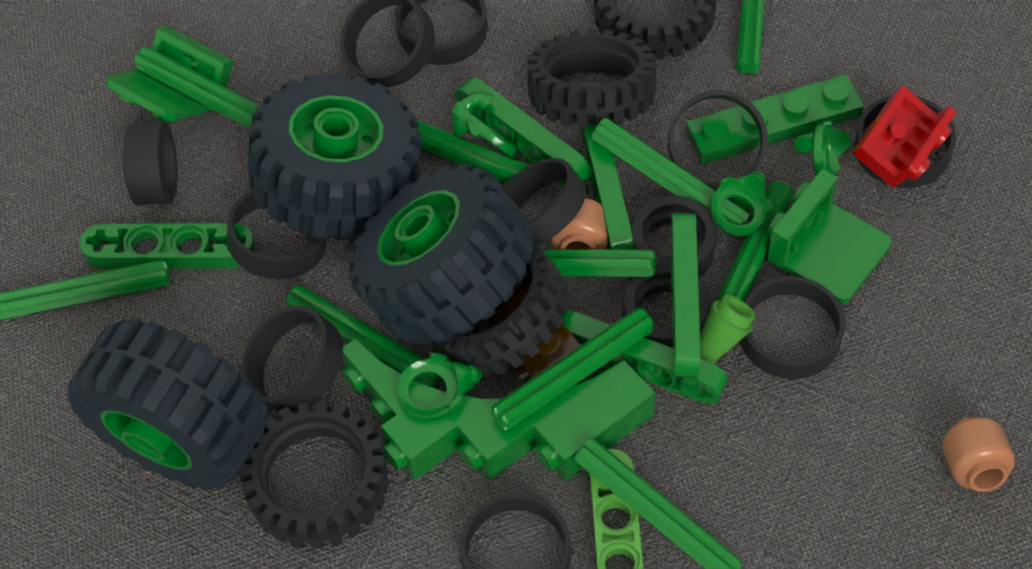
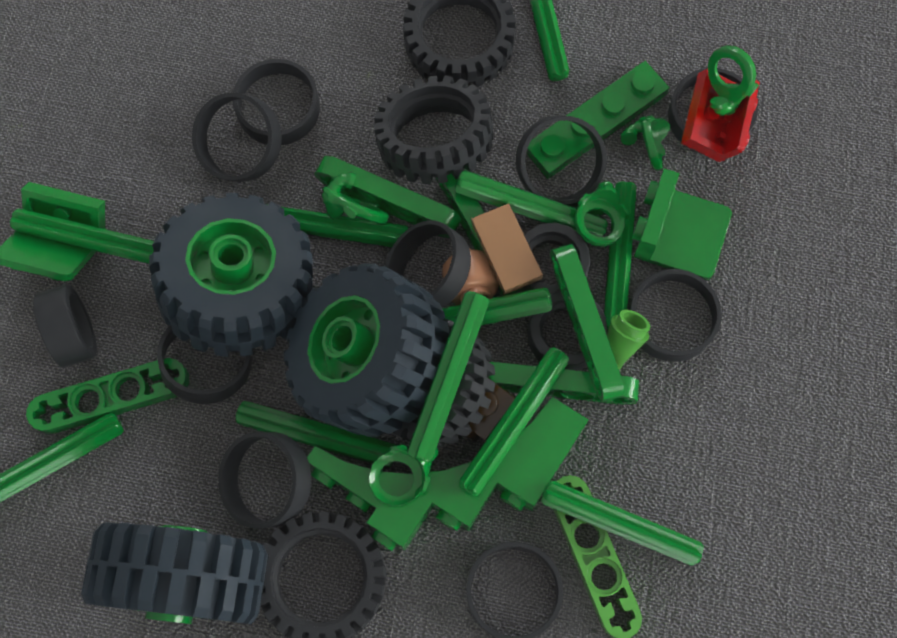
camera: 20 degrees left, 15 degrees up
(512, 291) = (448, 376): none -> green axle
(625, 205) = (506, 249): none -> medium nougat tile
(921, 116) = (731, 94): none -> green piece
(978, 454) = (860, 389): nougat head -> none

